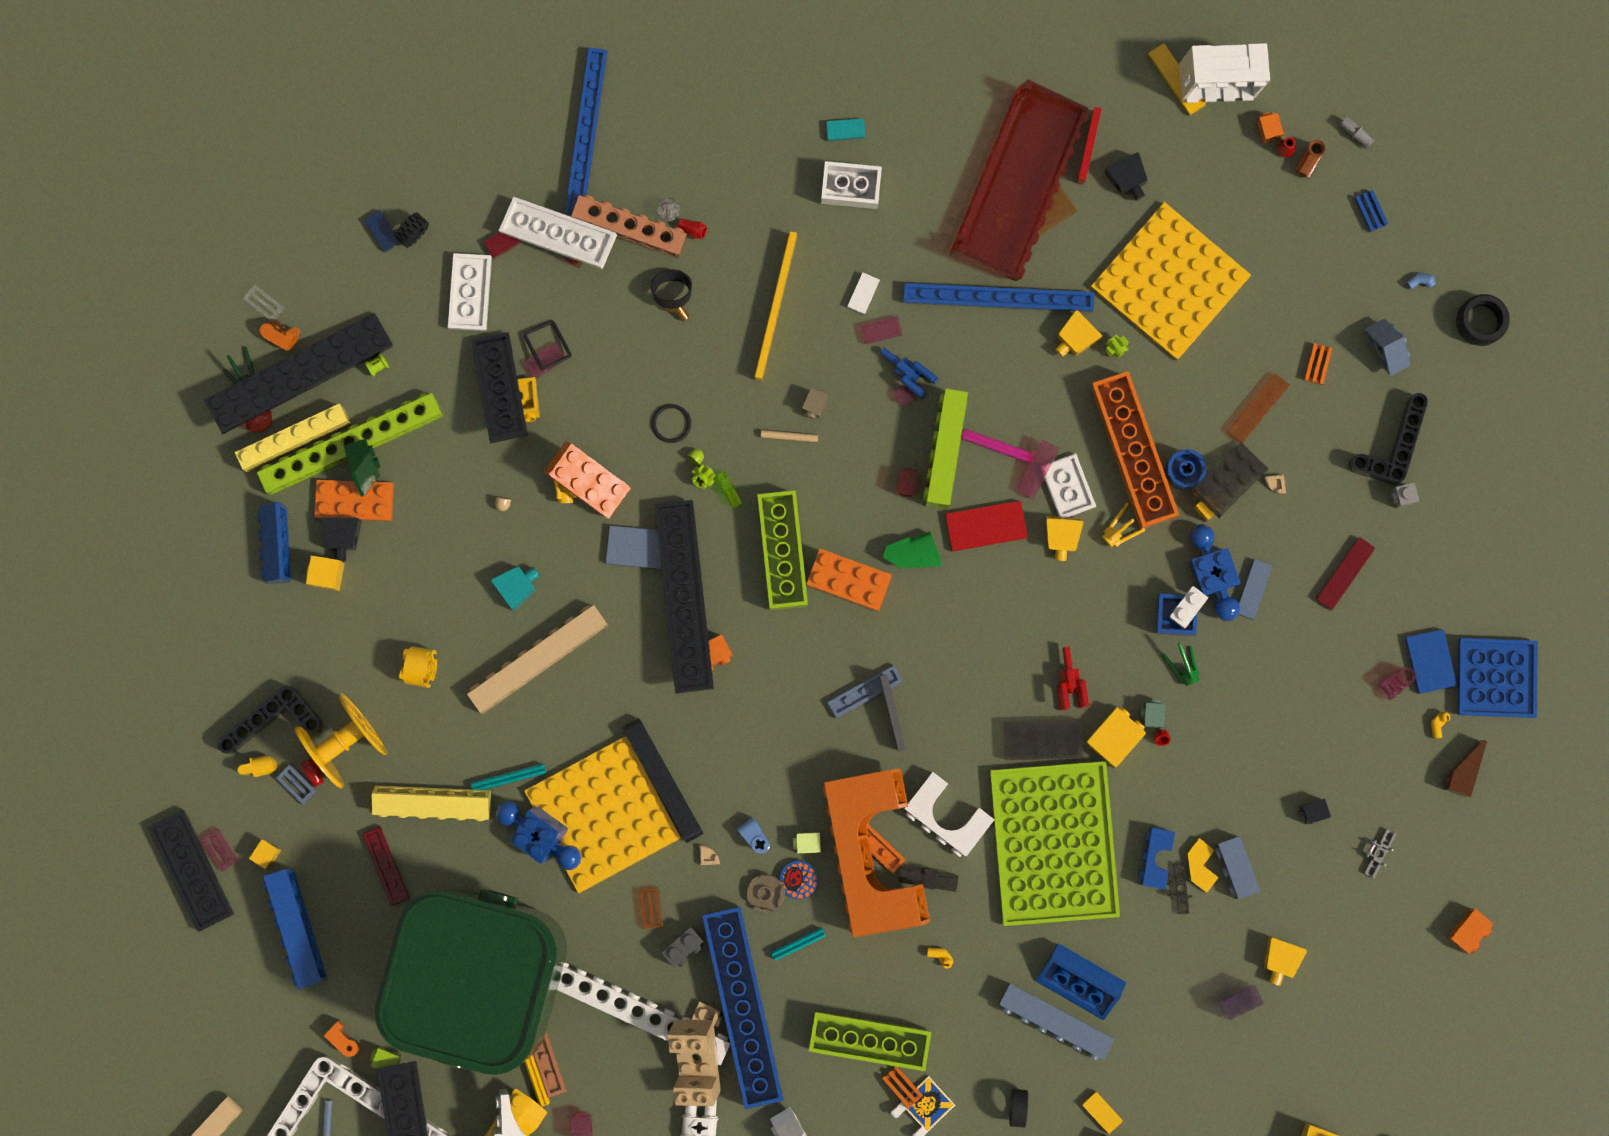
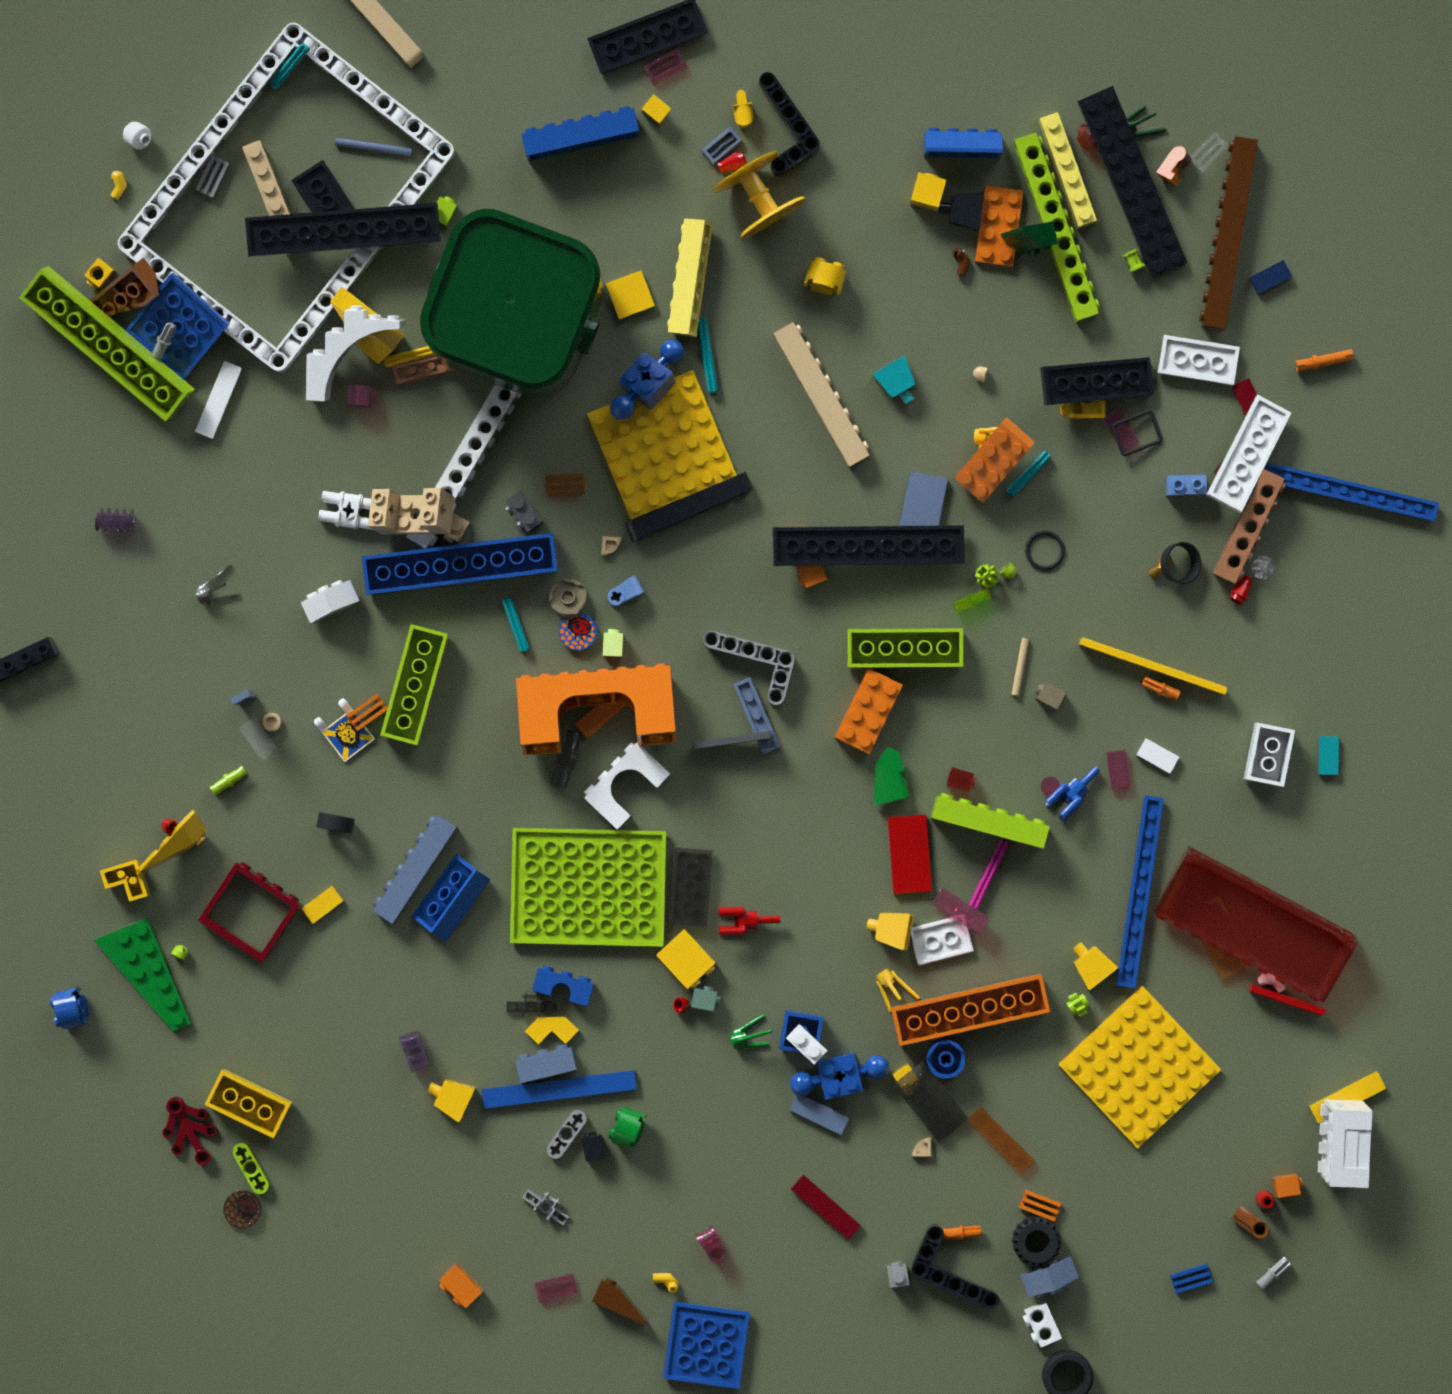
camera: 90 degrees right, 5 degrees up
(342, 274) = (1229, 233): none -> reddish brown brick
(345, 1044) = (466, 170): orange leg -> none
(385, 865) = (633, 227): dark red tile -> none
(391, 532) = (962, 259): none -> reddish brown arm
(411, 229) = (1267, 307): black tyre -> none
(454, 861) = (630, 295): none -> yellow tile
(462, 178) = (1324, 360): none -> orange pin
(594, 291) = (1186, 485): none -> medium blue brick
(597, 446) = (1024, 478): none -> teal axle
(797, 296) = (1161, 688): none -> orange axle
(805, 696) = (757, 656): none -> light grey beam
(942, 955) = (489, 765): yellow arm -> none
(1071, 163) = (1269, 979): none -> arm
(1128, 176) = (1251, 1036): black torso -> none
(1260, 852) = (559, 1089): none -> blue tile
(1292, 777) = (628, 1128): none -> green brick
(1314, 851) = (579, 1125): none -> light grey beam
(1354, 436) = (962, 1232): none -> orange axle
(1362, 349) = (1048, 1253): none -> black tyre
(1423, 278) = (1116, 1321): medium blue arm -> none
(1431, 661) = (729, 1281): blue tile -> none
(1433, 347) = (1045, 1322): none -> white brick
(1452, 838) = (552, 1280): none -> clear pink tile

